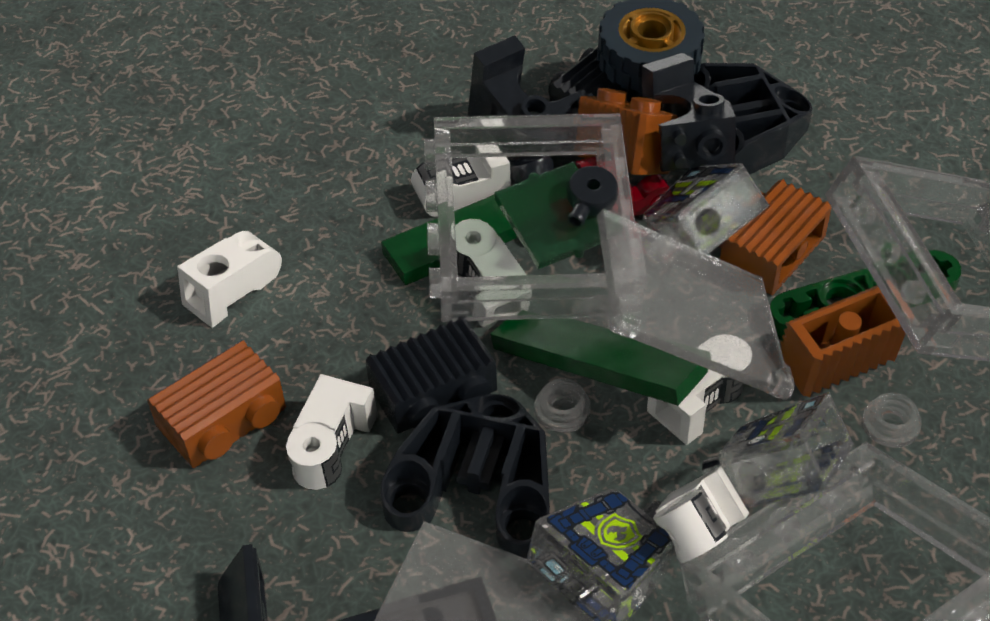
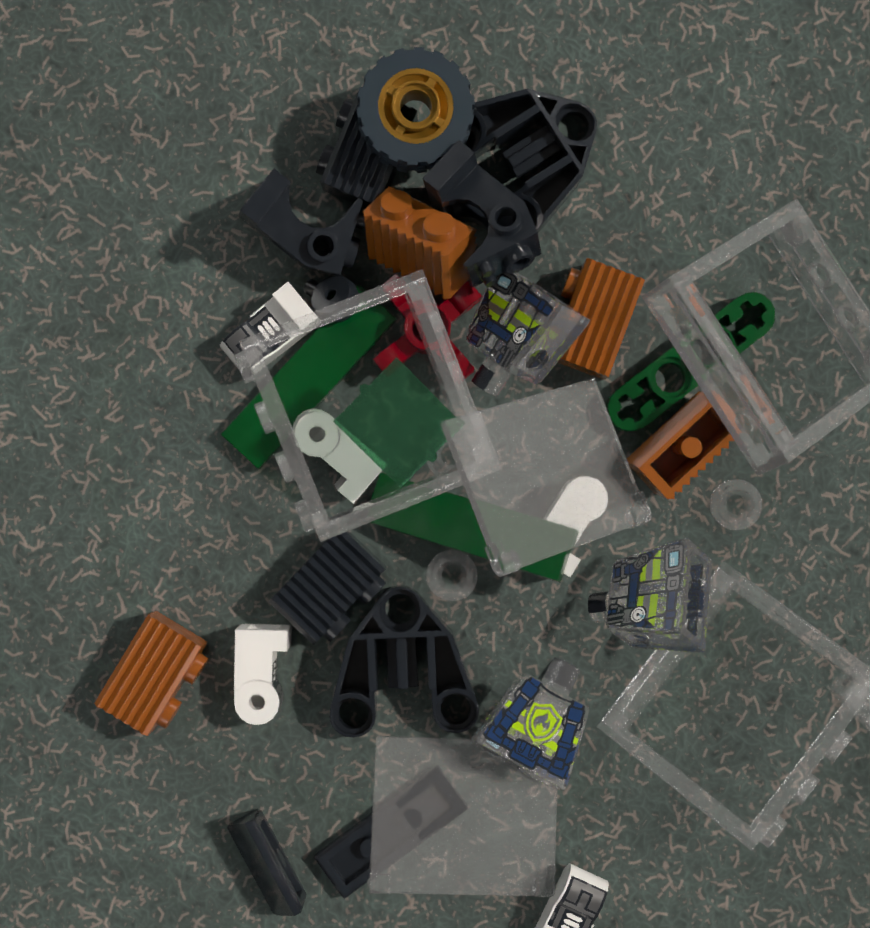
camera: 20 degrees left, 40 degrees up
(226, 274) = (94, 521): white leg -> none
(590, 192) = (427, 412): black piece -> none
(700, 514) = (601, 687): white leg -> none

